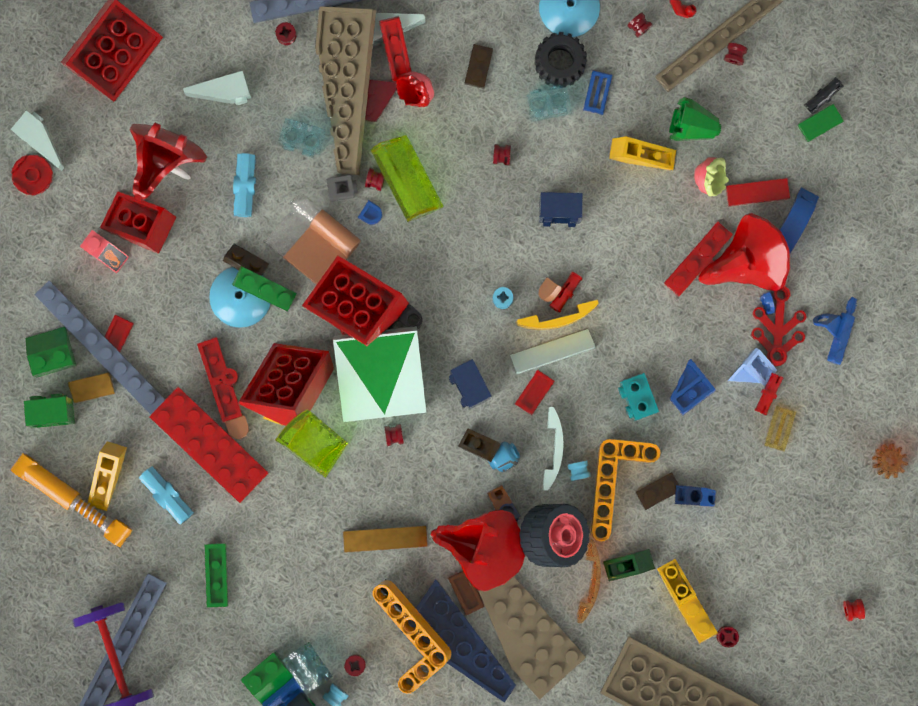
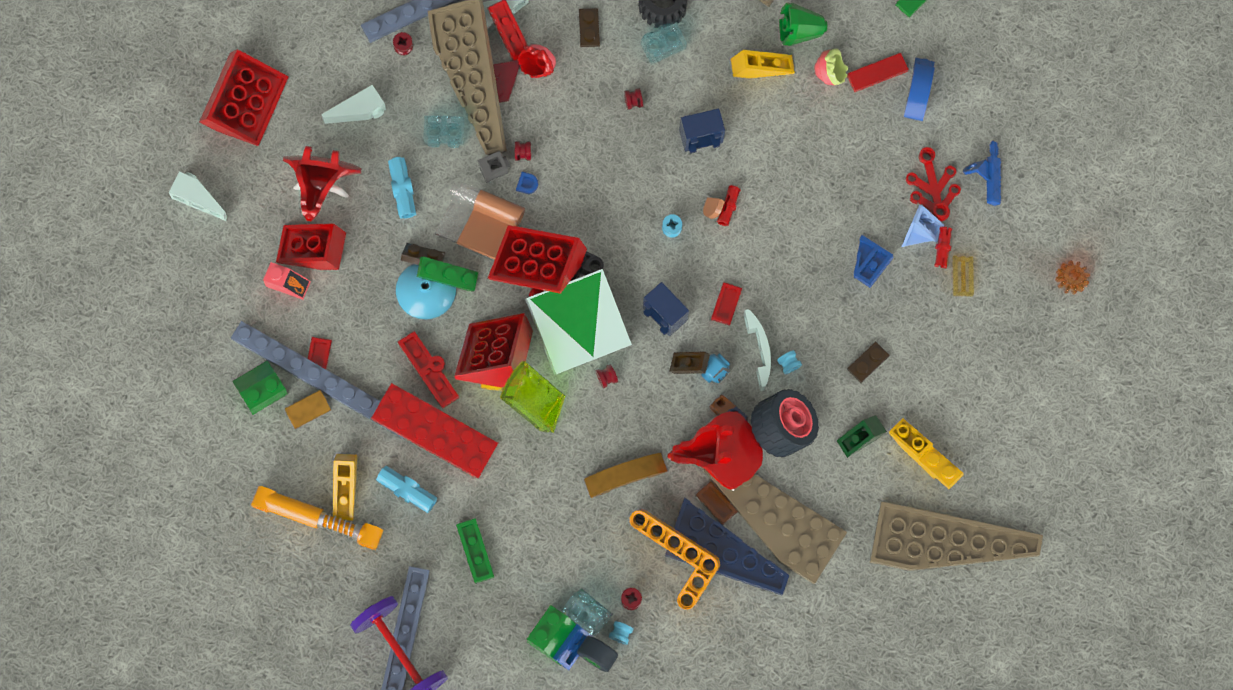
camera: 15 degrees left, 10 degrees down
(32, 174) = (197, 237): red tile -> none
(49, 412) = (274, 439): green brick -> none
(238, 427) = (457, 409): nougat tile -> none
(406, 178) = (551, 141): clear neon green slope -> none
(533, 323) = (707, 241): yellow slope -> none
(552, 351) = (732, 262): light aqua slope -> none
(585, 607) = (826, 436): clear orange slope -> none
(593, 109) = (705, 38): blue tile -> none
(610, 480) = (820, 363): light orange beam -> none
(638, 397) = (824, 281): teal brick -> none
(695, 496) = (903, 356): dark blue leg -> none
(698, 259) = (842, 145): red hinge -> none
(729, 635) = (975, 473): dark red wheel -> none
(754, 257) = (893, 127): red animal -> none
(766, 299) = (916, 166): blue tile -> none
(854, 609) = (1082, 420): red wheel -> none

